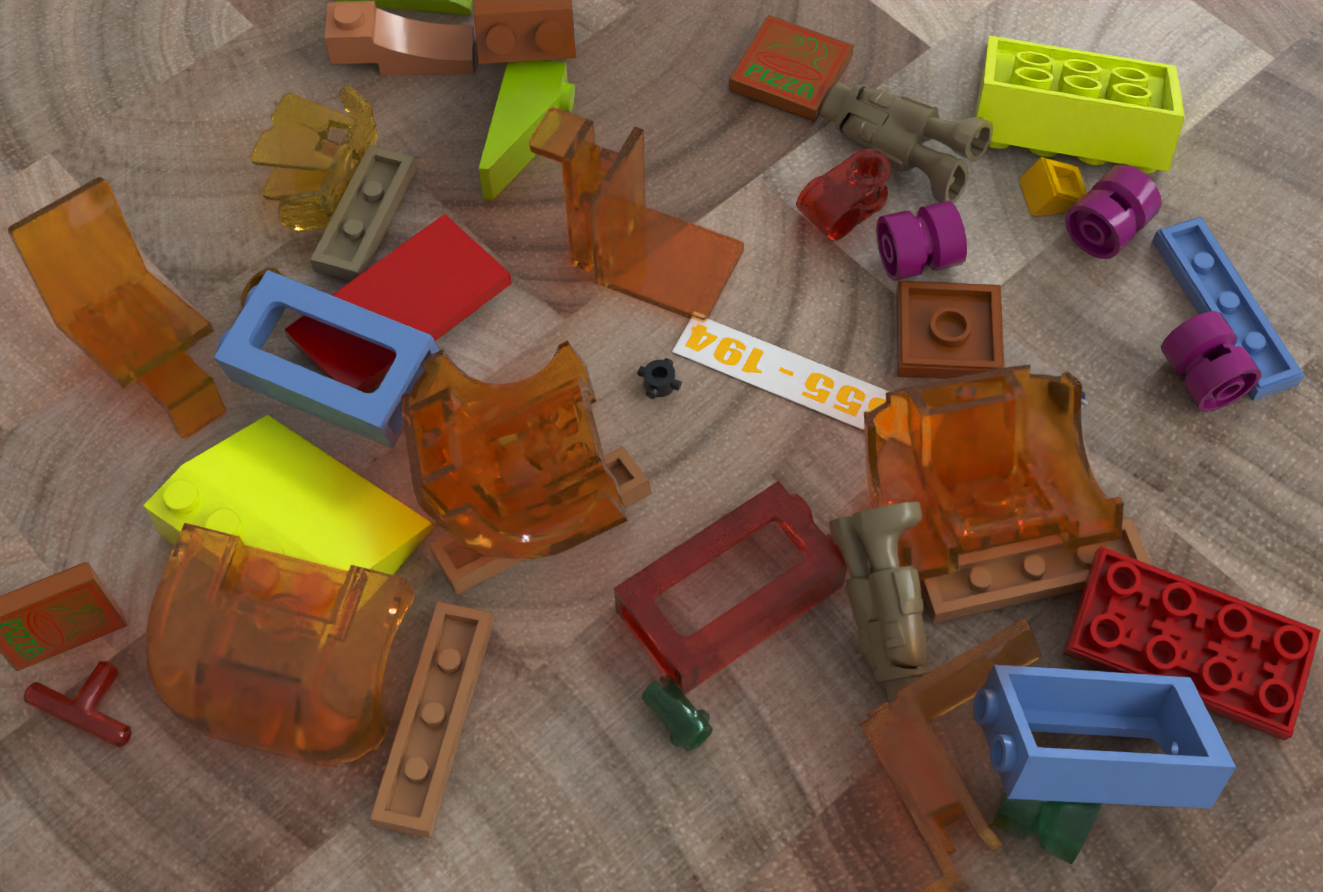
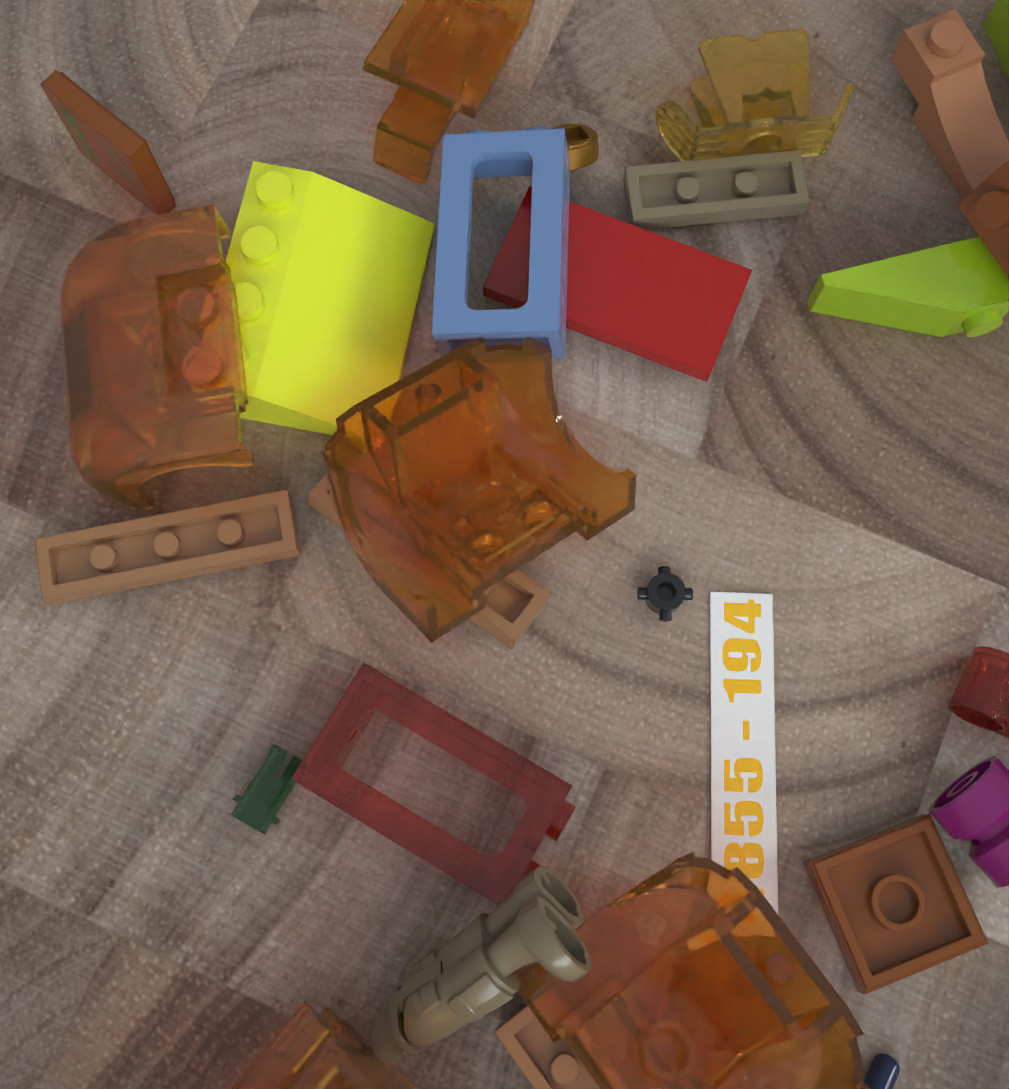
camera: 65 degrees right, 15 degrees up
(81, 710) = (58, 225): clear red piece -> none
(625, 241) = (828, 473): clear orange piece -> none

